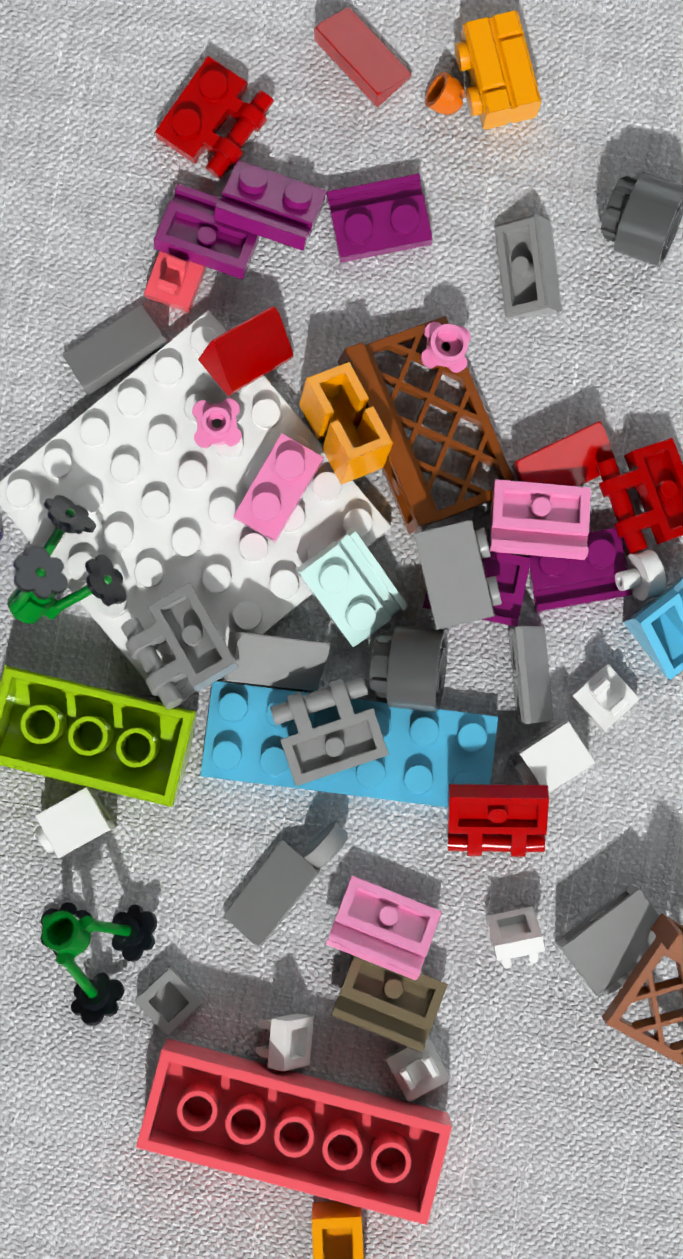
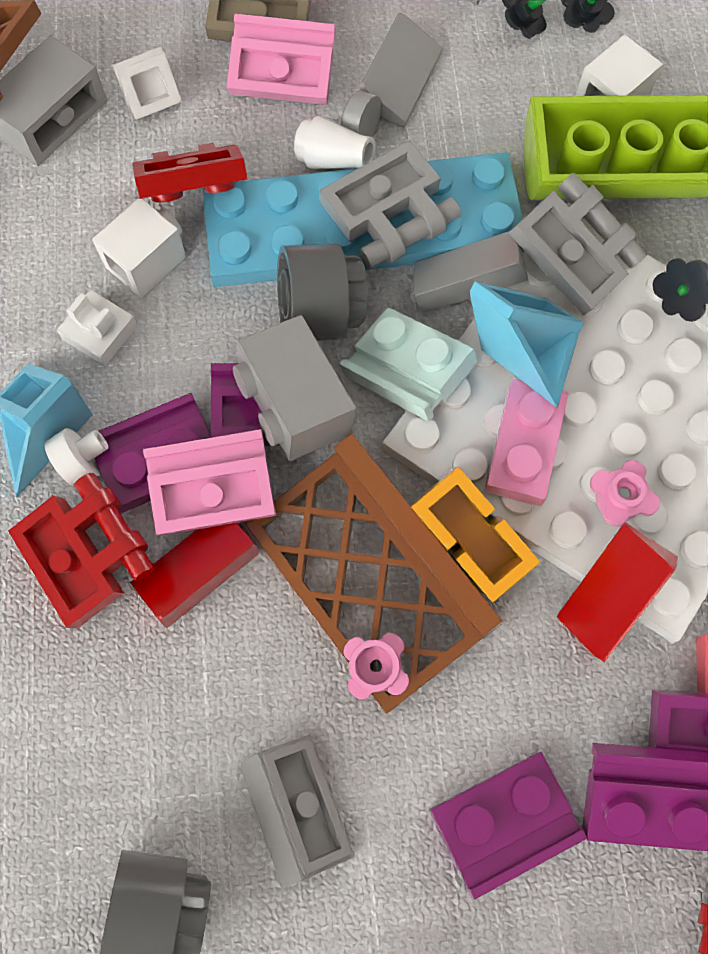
camera: 165 degrees right, 15 degrees down
(246, 569) = (526, 336): none -> medium azure slope
(361, 819) = (331, 146): none -> white cone
(530, 674) = (183, 326): light grey slope -> none

